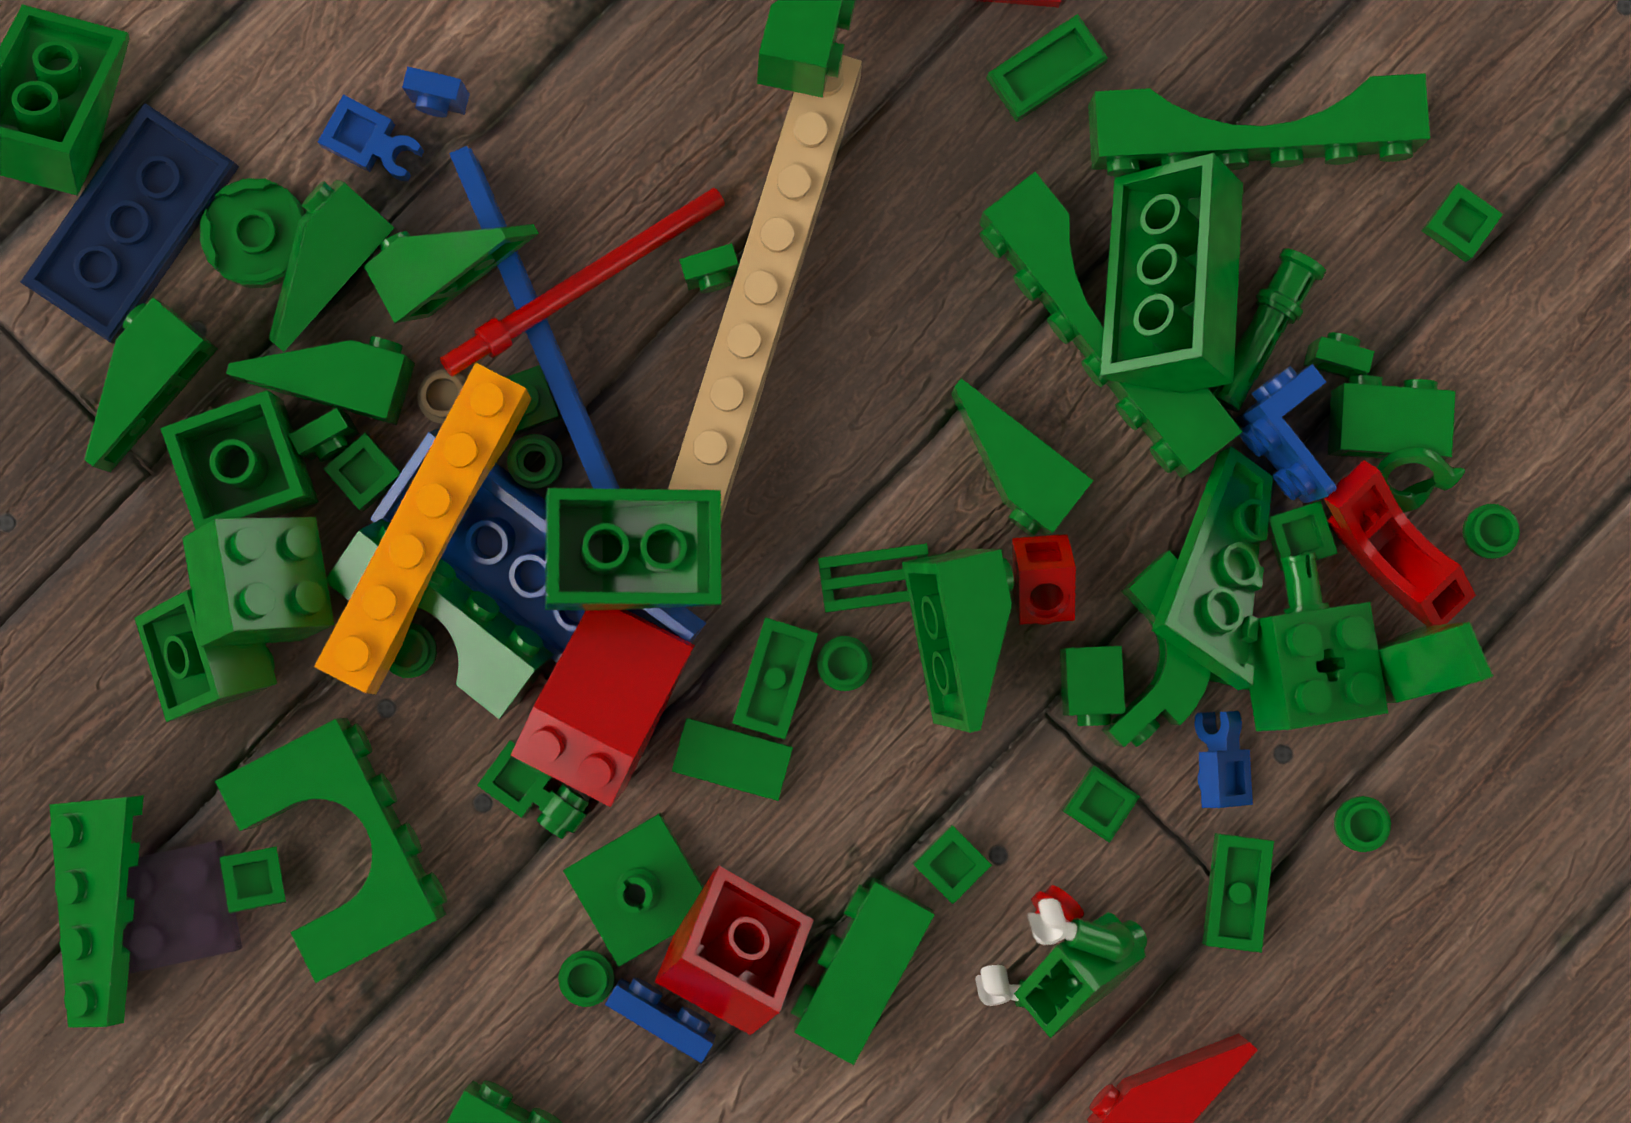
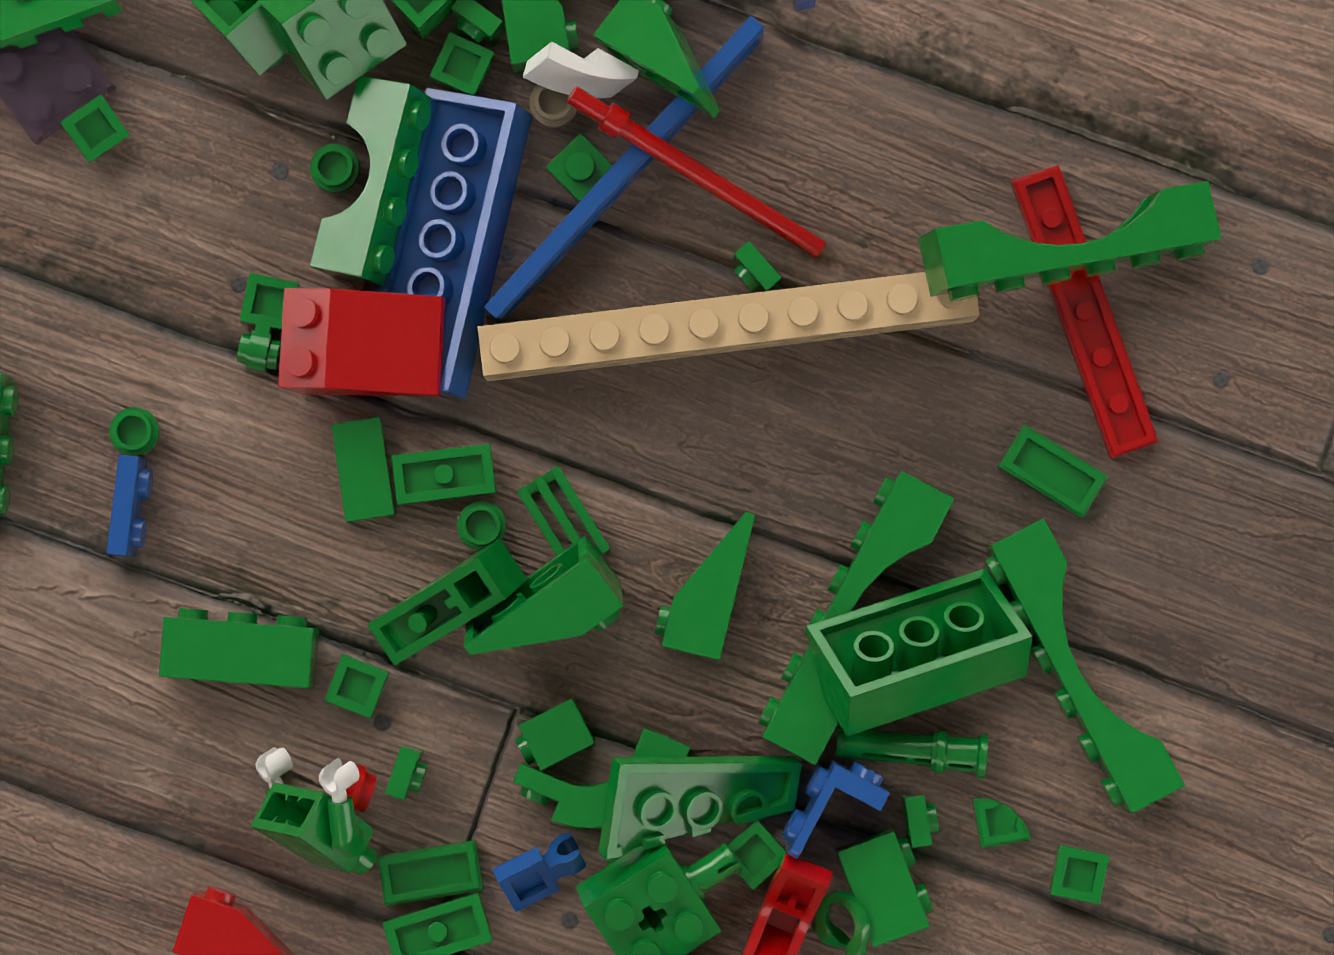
camera: 70 degrees right, 0 degrees up
(397, 892) = (212, 154): green arch -> none
(418, 367) = (563, 70): none -> white slope
(425, 521) = (432, 134): light orange arch -> none
(523, 449) = (531, 184): green plate -> none
(632, 548) = (491, 310): green slope -> none
(636, 888) = (224, 442): green tile -> none
(735, 952) = (208, 541): red slope -> none
(908, 731) = (448, 602): none -> green slope
(1043, 579) = (621, 656): red brick -> none
(1064, 851) = (407, 773): none -> green plate
(1100, 803) = (461, 787): green tile -> none
(1173, 874) = (430, 872): none -> green tile
(1374, 281) = (997, 823): none -> green tile

